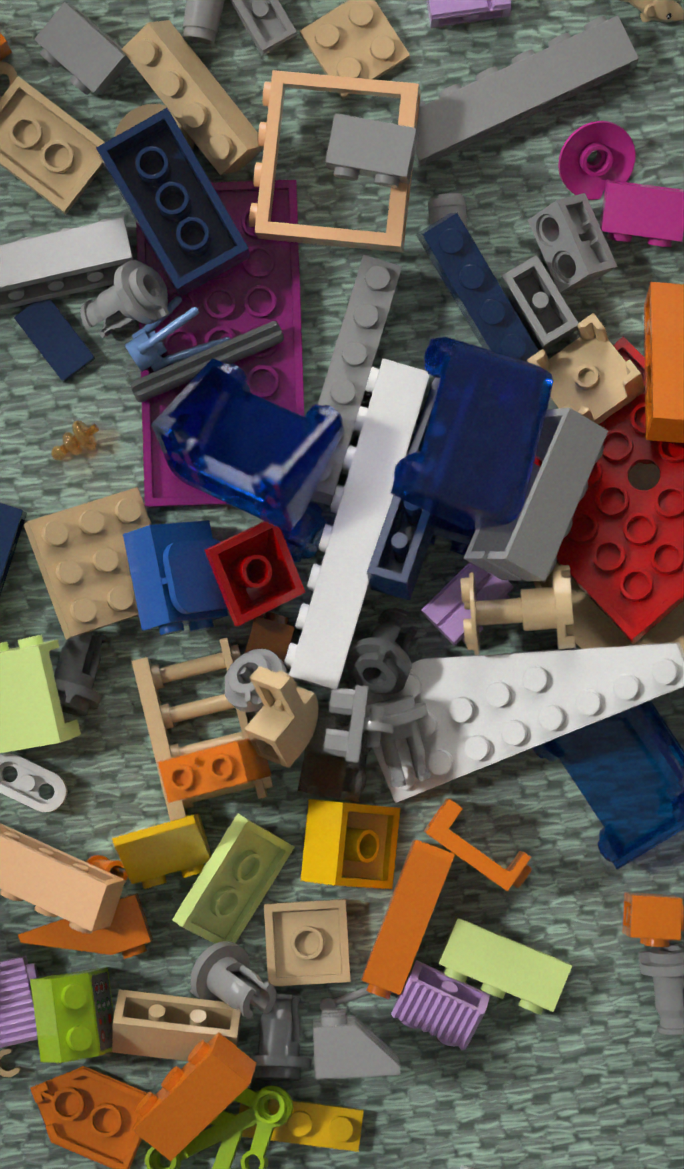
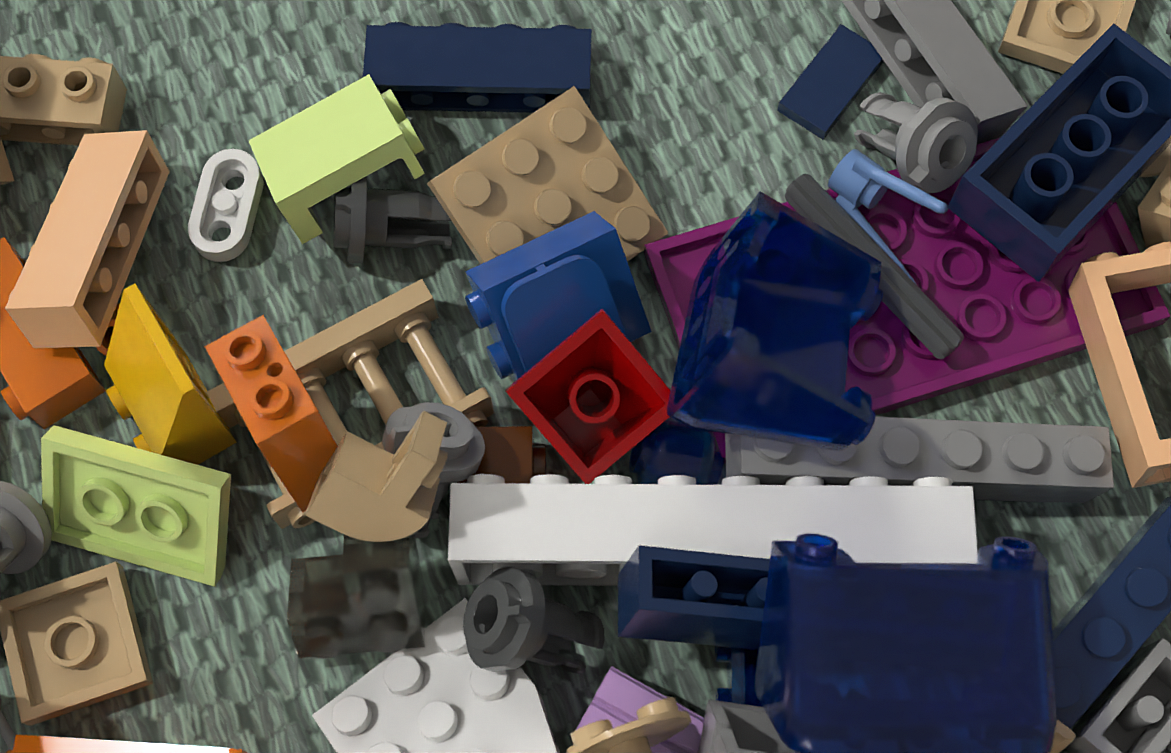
camera: 75 degrees right, 15 degrees down
(72, 443) = (710, 144): clear orange hair -> none
(349, 742) = (366, 596): light grey hips -> none
(350, 844) = (230, 666): yellow slope -> none
(403, 714) = (427, 672): light grey piece -> none

